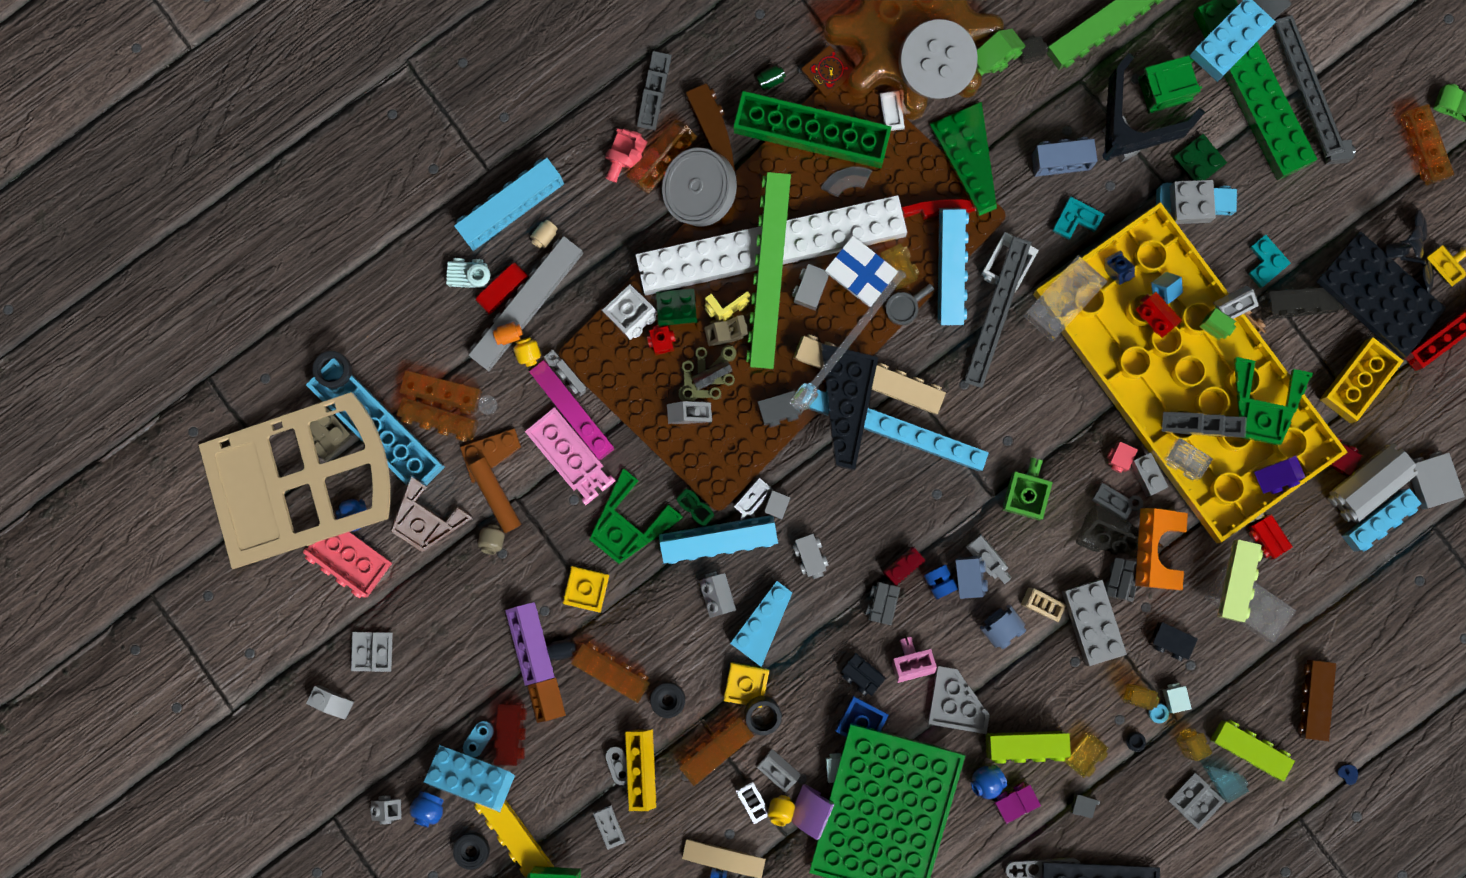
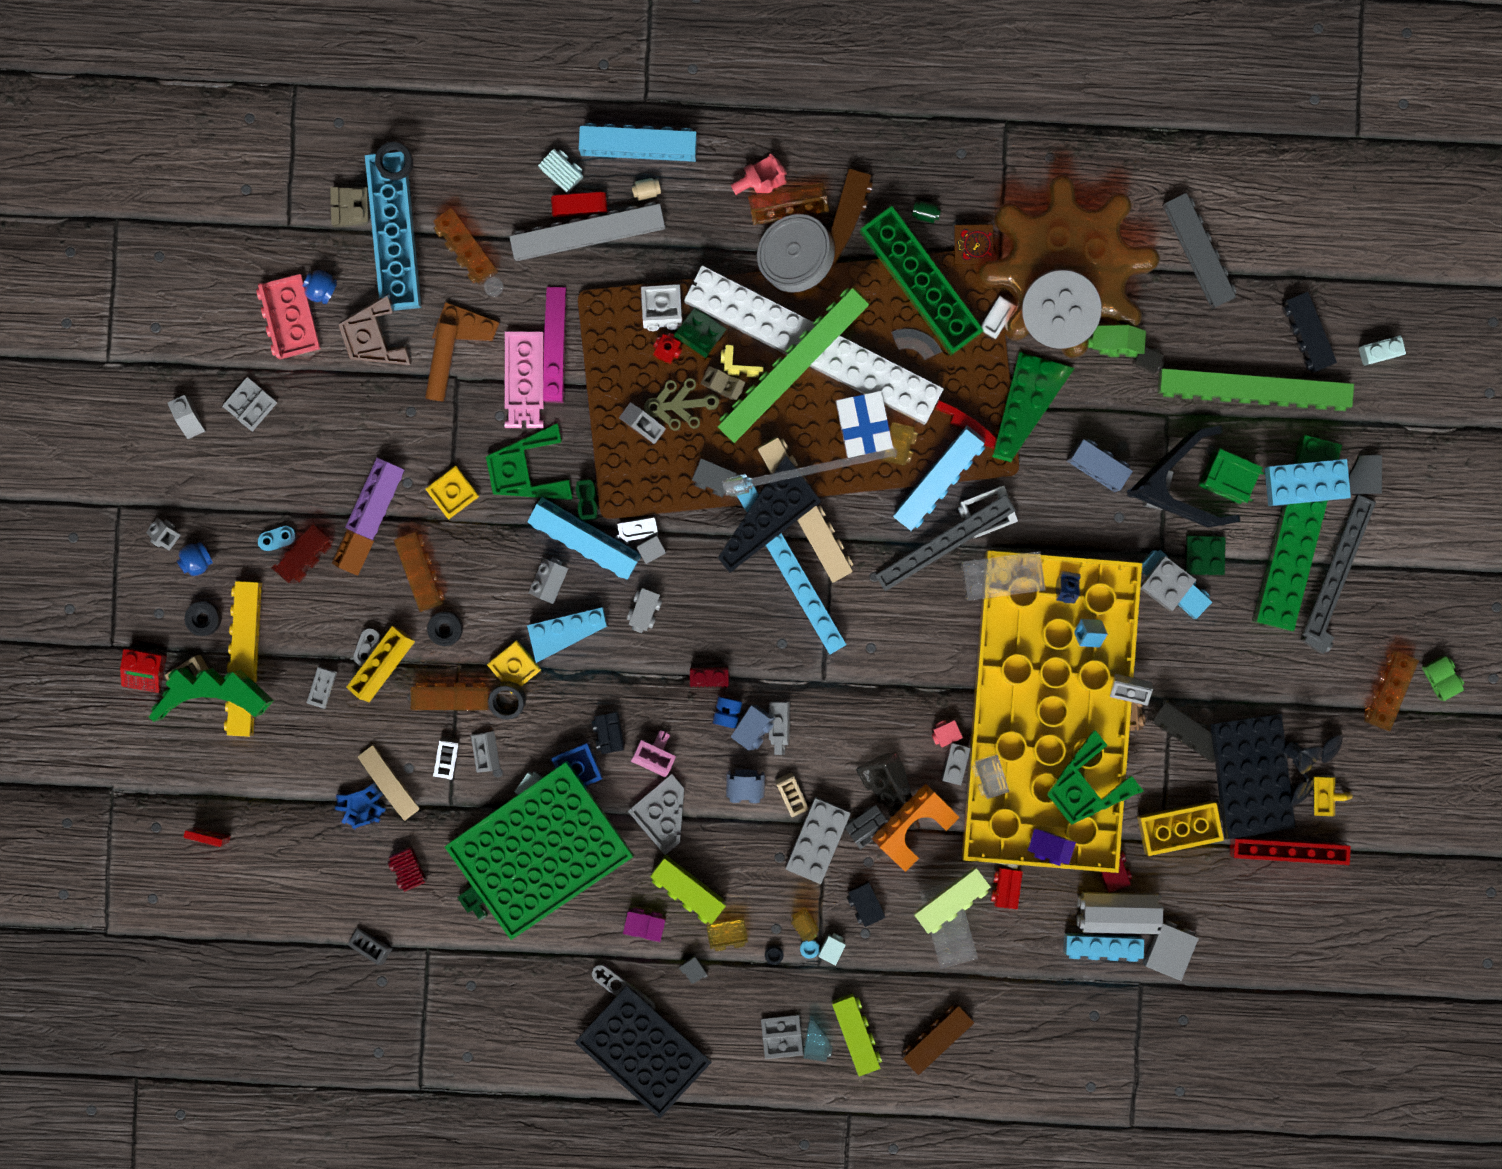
camera: 30 degrees right, 5 degrees up
(252, 496) = (256, 205): tan door -> none
(435, 418) = (445, 265): clear orange brick -> none
(469, 778) = (245, 563): medium azure brick -> none
(478, 283) = (562, 173): light aqua piece -> none
(491, 539) = (410, 394): dark tan head -> none
(507, 333) = (553, 245): orange brick -> none
(527, 351) = (557, 270): yellow head -> none
(562, 649) = (396, 523): black brick -> none
(565, 372) = (572, 294): light grey hinge -> none
(654, 90) = (826, 146): dark grey slope -> none
(709, 375) = (683, 407): dark grey slope -> none
(781, 810) = (461, 783): yellow head -> none
(811, 287) = (817, 403): light grey brick -> none
(811, 812) = (483, 802): medium lavender slope -> none
(883, 603) = (669, 692): dark grey brick -> none
(903, 307) = (875, 478): dark grey piece -> none
(988, 781) = (635, 891): blue piece -> none
(1037, 488) = (852, 690): bright green brick -> none
(1074, 214) = (1071, 516): teal plate -> none
(1115, 501) = (913, 764): dark grey hinge -> none
(1158, 314) = (1063, 647): red brick -> none
(1194, 744) = (814, 993): clear yellow brick -> none
(1204, 424) = (1026, 761): dark grey slope -> none
(1218, 324) = (1101, 693): bright green brick -> none
(1272, 261) = (1193, 682): teal plate -> none
(1348, 773) = (915, 1112): dark blue piece -> none

